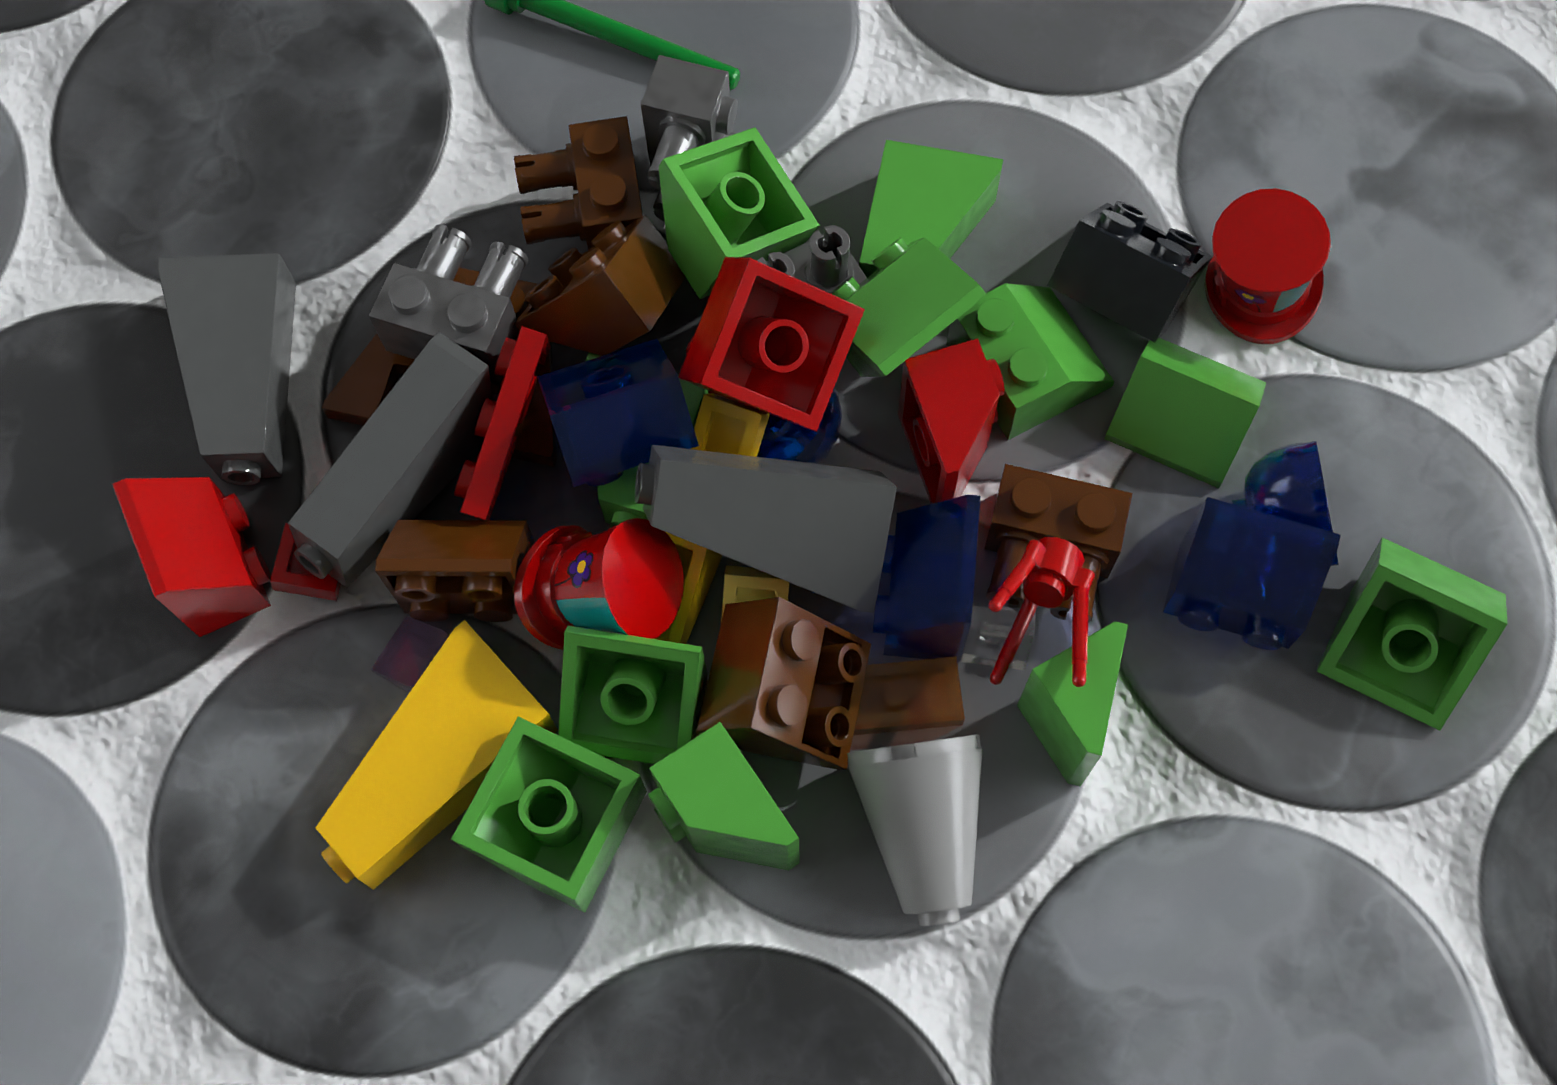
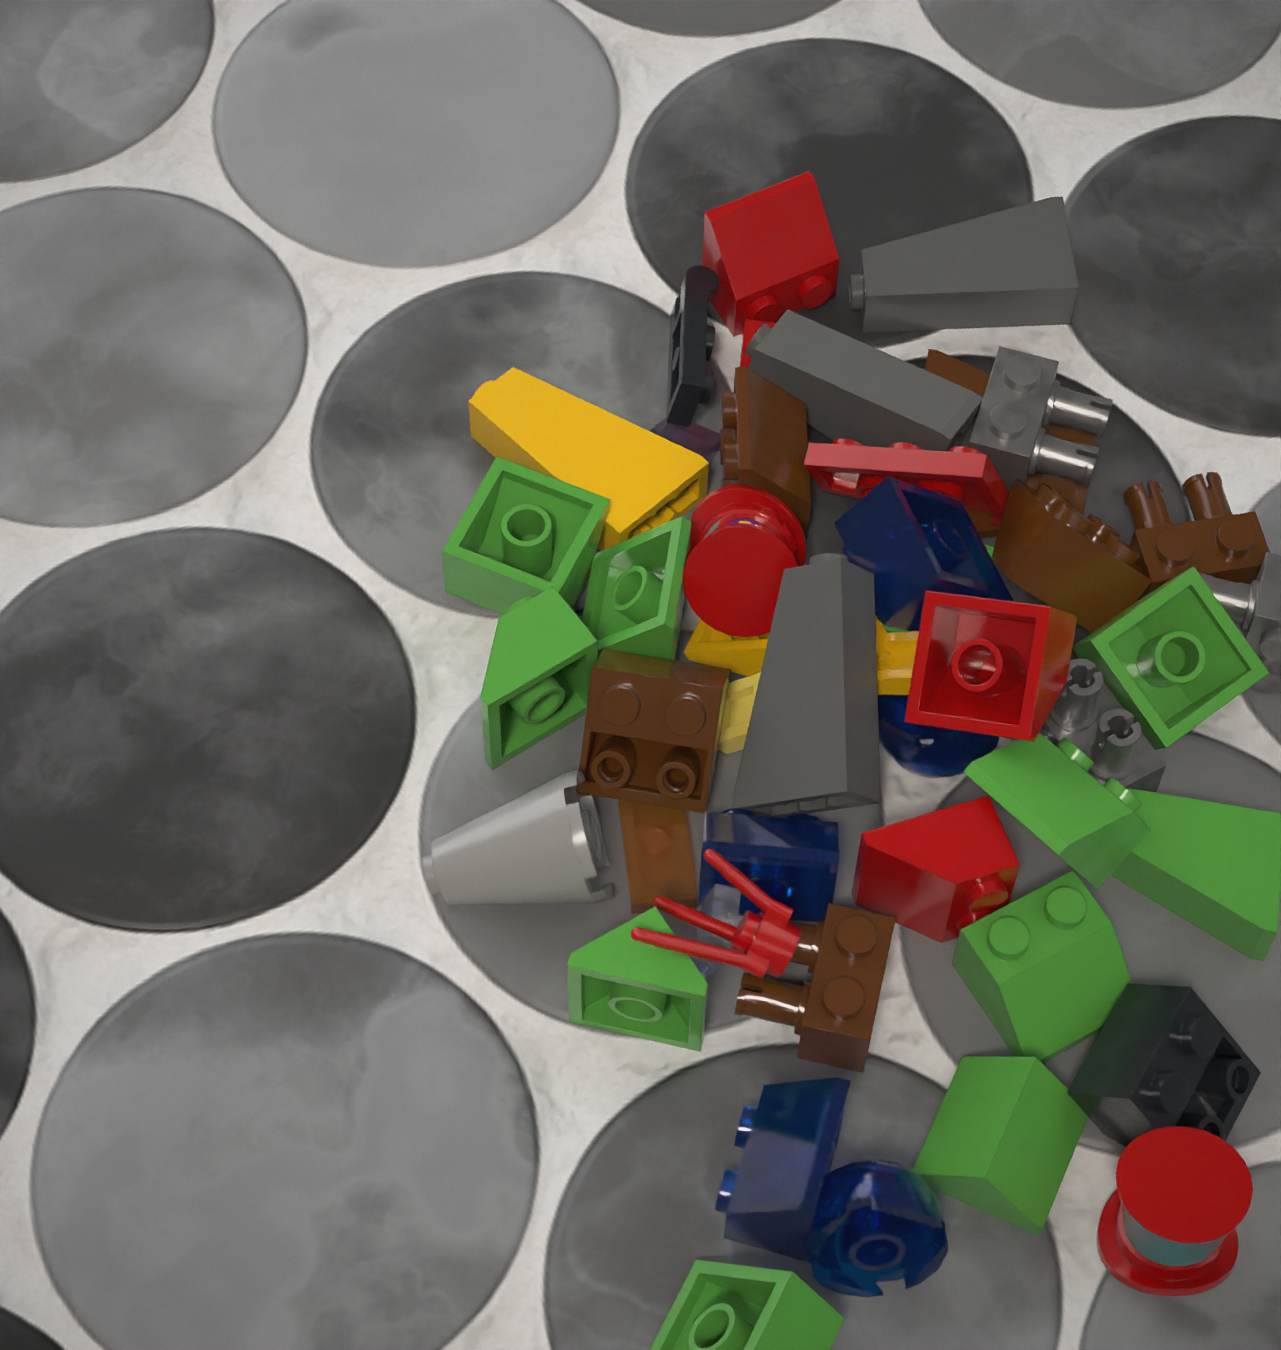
camera: 85 degrees right, 10 degrees down
(298, 640) = (690, 346): none -> black plate

